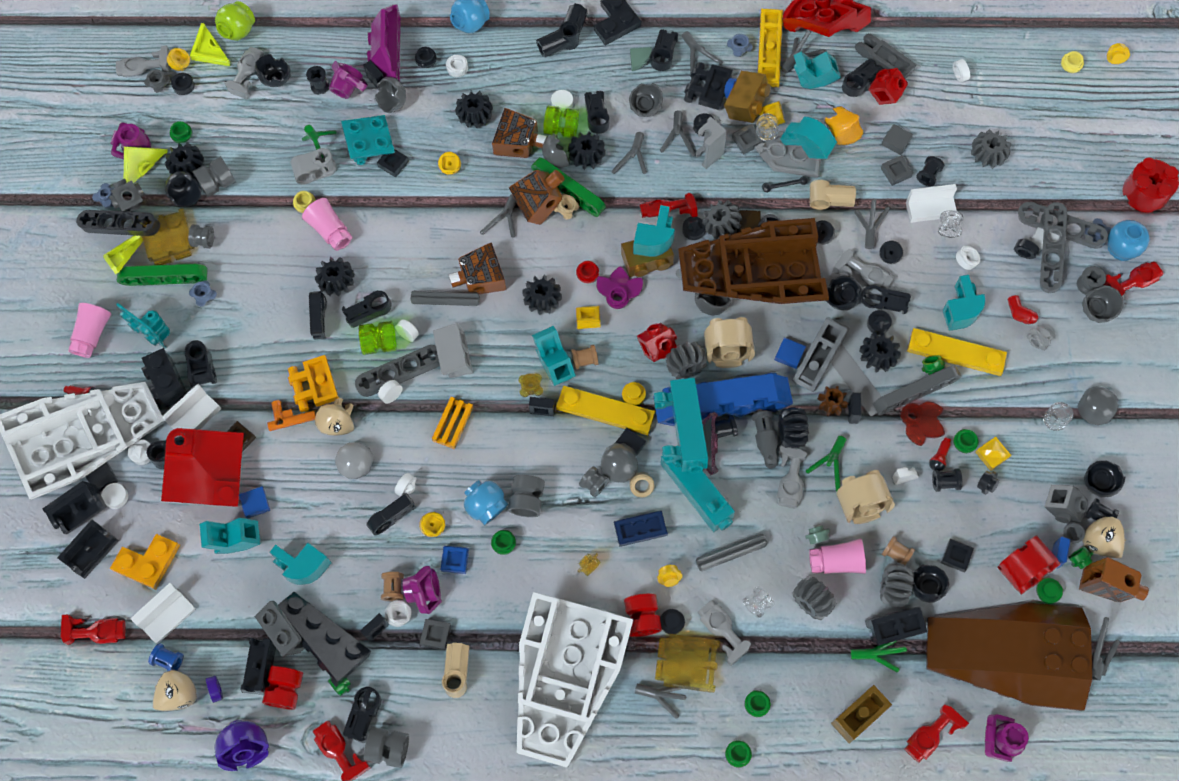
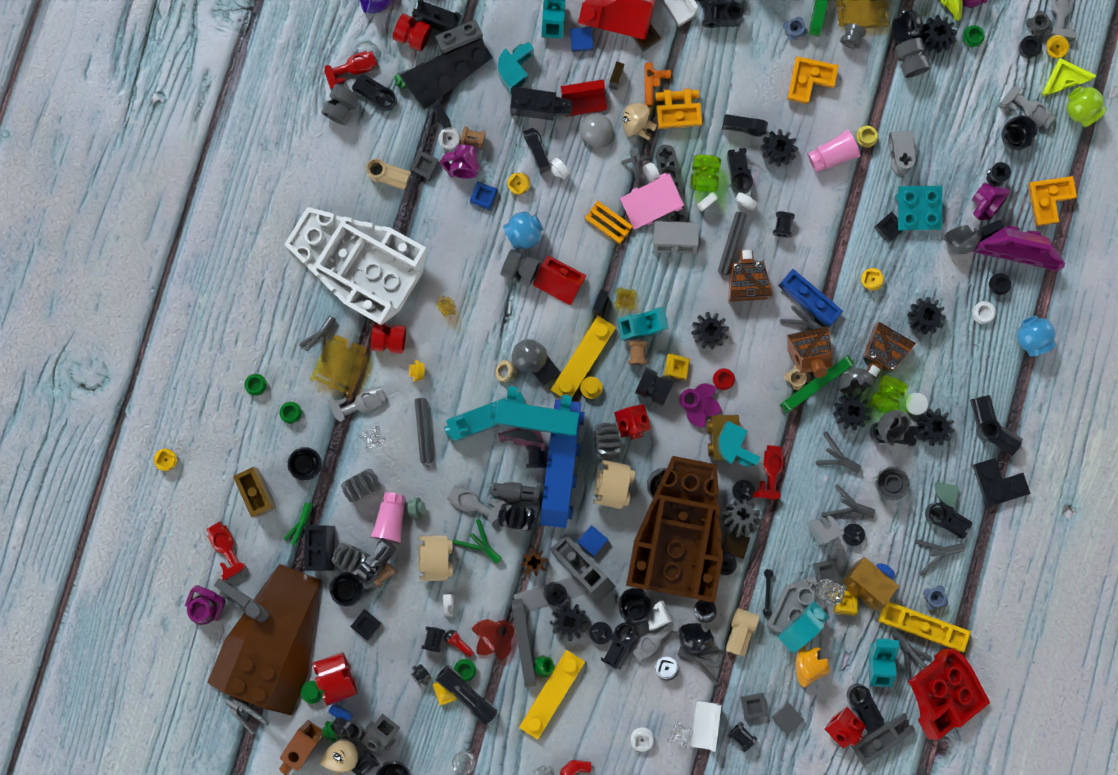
camera: 100 degrees right, 15 degrees up
(251, 271) = (810, 72): none -> light orange plate
(289, 453) = (616, 75): none -> dark brown tile
(313, 135) = (930, 156): green plant -> none
(321, 482) = (585, 97): none -> red panel
(329, 38) = (1045, 195): none -> light orange plate
(338, 526) = (538, 104): none -> black hinge
(380, 406) = (635, 159): none -> dark grey plant
(398, 294) = (745, 201): none -> white tile
(414, 254) = (783, 224): none -> black bush
(420, 381) = (652, 201): none -> bright pink piece
(483, 213) = (810, 298): none -> blue tile
(503, 542) = (486, 239): green plate -> none
(528, 453) = (559, 280): none -> red panel
(580, 78) = (942, 428): none -> black gear
(591, 108) = (893, 426): none -> dark grey hair
(594, 481) = (517, 329): dark grey wheel -> none
(615, 331) = (654, 386): none -> black wheel
(640, 528) = (465, 358): dark blue plate -> none
(672, 621) = (378, 362): black plate -> none
(713, 91) = (886, 553): black plate -> none
(809, 668) = (304, 463): none -> black hair
(844, 267) = (659, 616): none -> white tile
(854, 231) = (694, 638): none -> black hair
(854, 408) = (521, 579): black tile -> none
(856, 373) = (555, 593): none -> black tile
(891, 554) = (375, 563): none -> black piece
(966, 309) = (587, 717): teal brick -> none
(985, 689) = (243, 601): none -> dark grey hinge
(986, 441) = (478, 706): none -> black axle
(1076, 542) = (342, 728): none -> black tile

